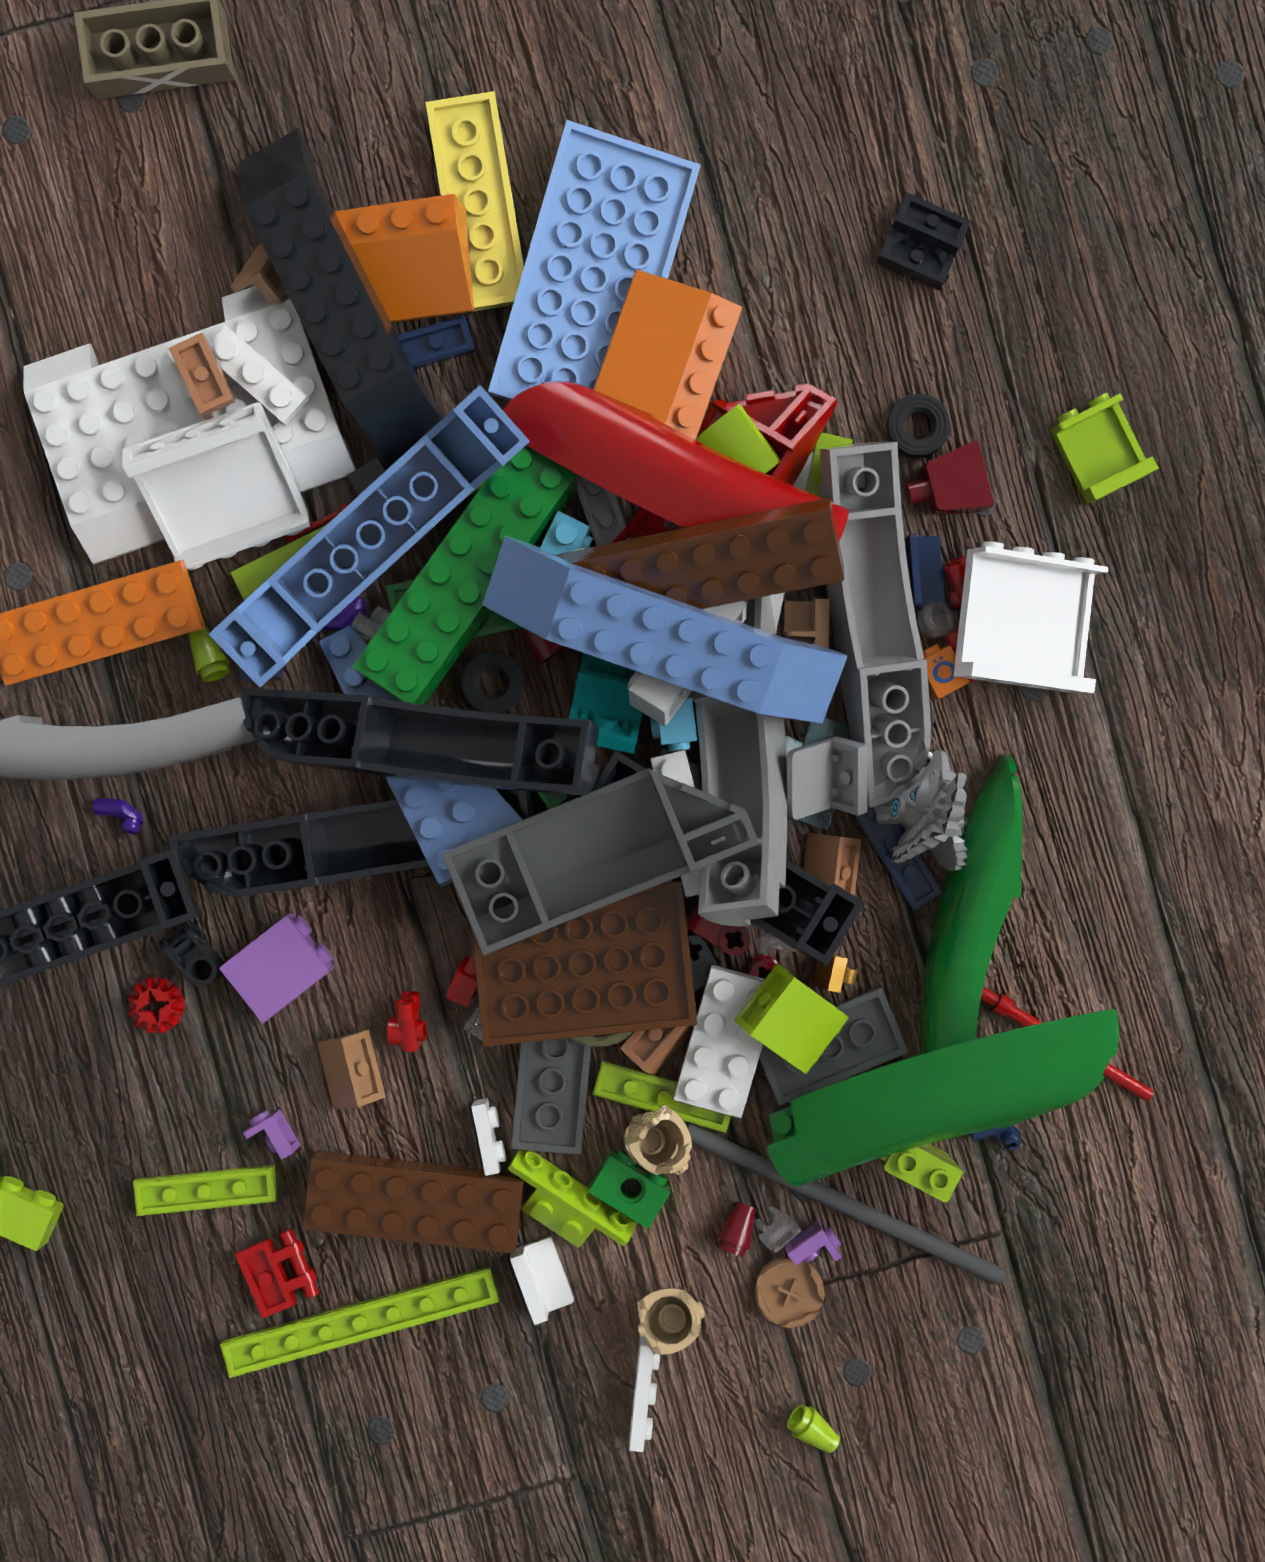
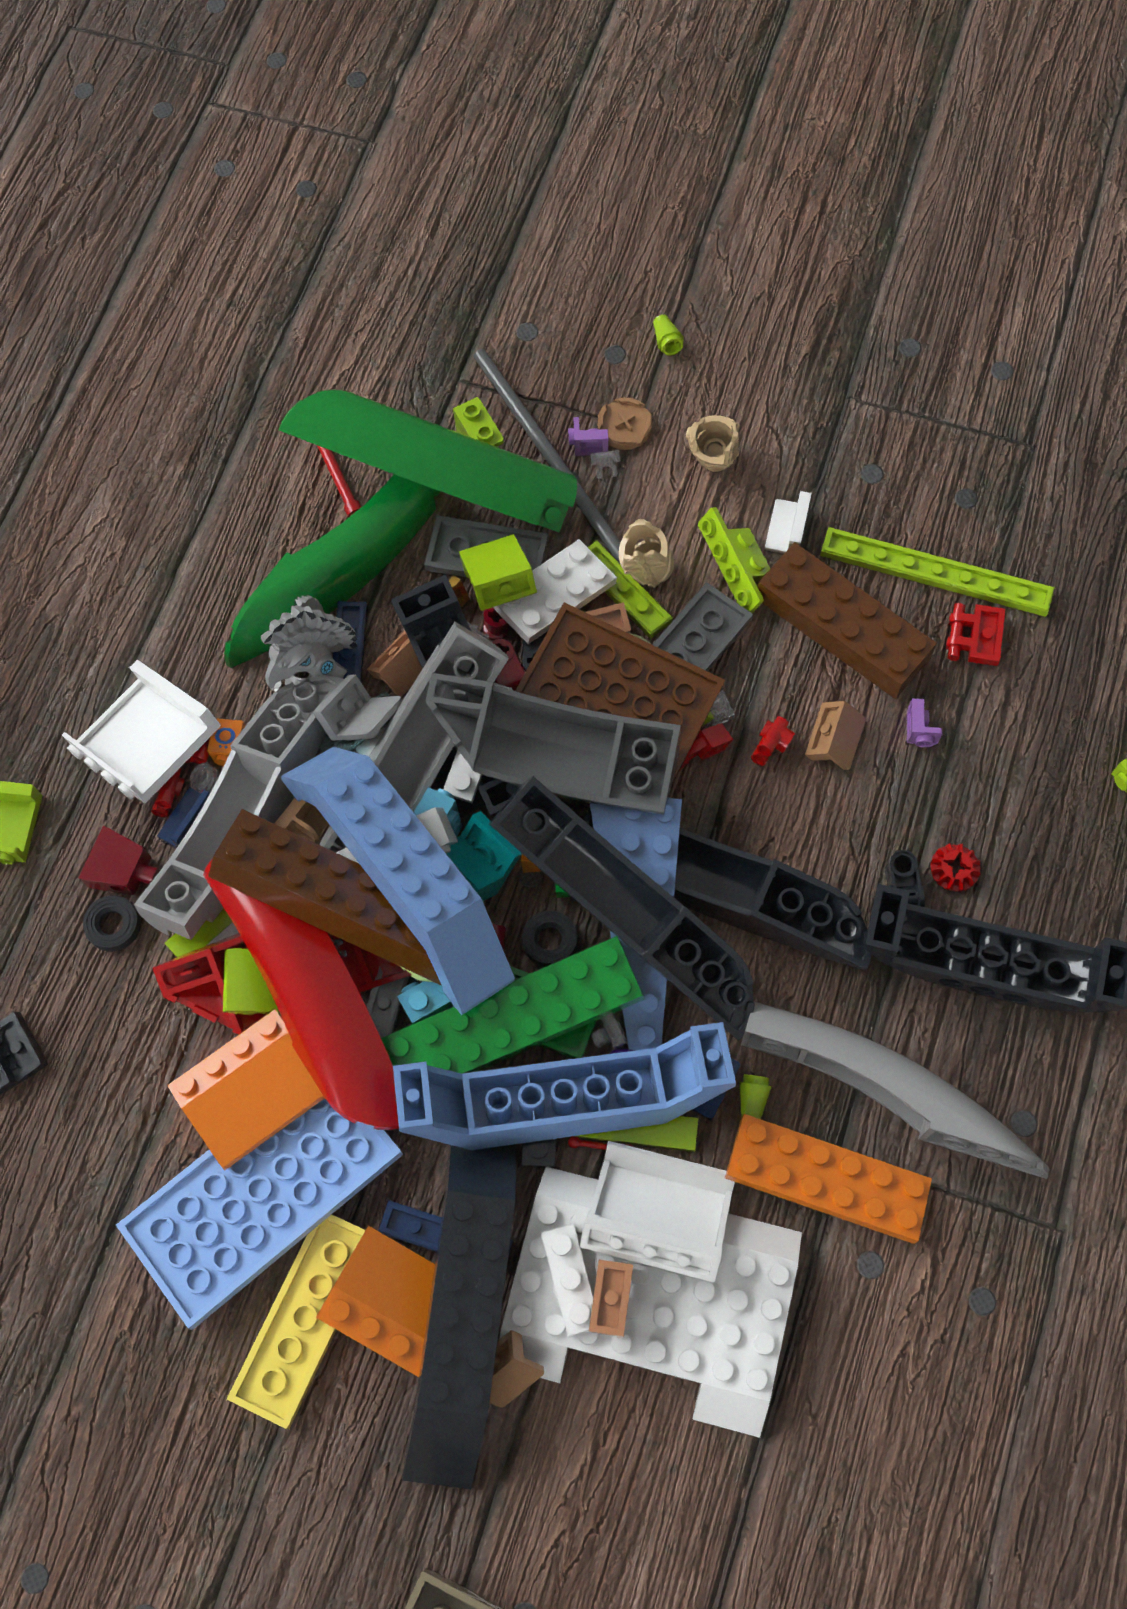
camera: 145 degrees left, 20 degrees down
(120, 808) = (895, 1024): dark purple arm -> none
(205, 1190) = (997, 719): lime tile -> none
(278, 966) = (844, 835): medium lavender brick -> none
(491, 1150) = (767, 621): white plate -> none
(641, 1205) = (686, 527): green brick -> none
(644, 1395) = (766, 416): white plate -> none
(737, 1230) = (632, 476): dark red cone -> none

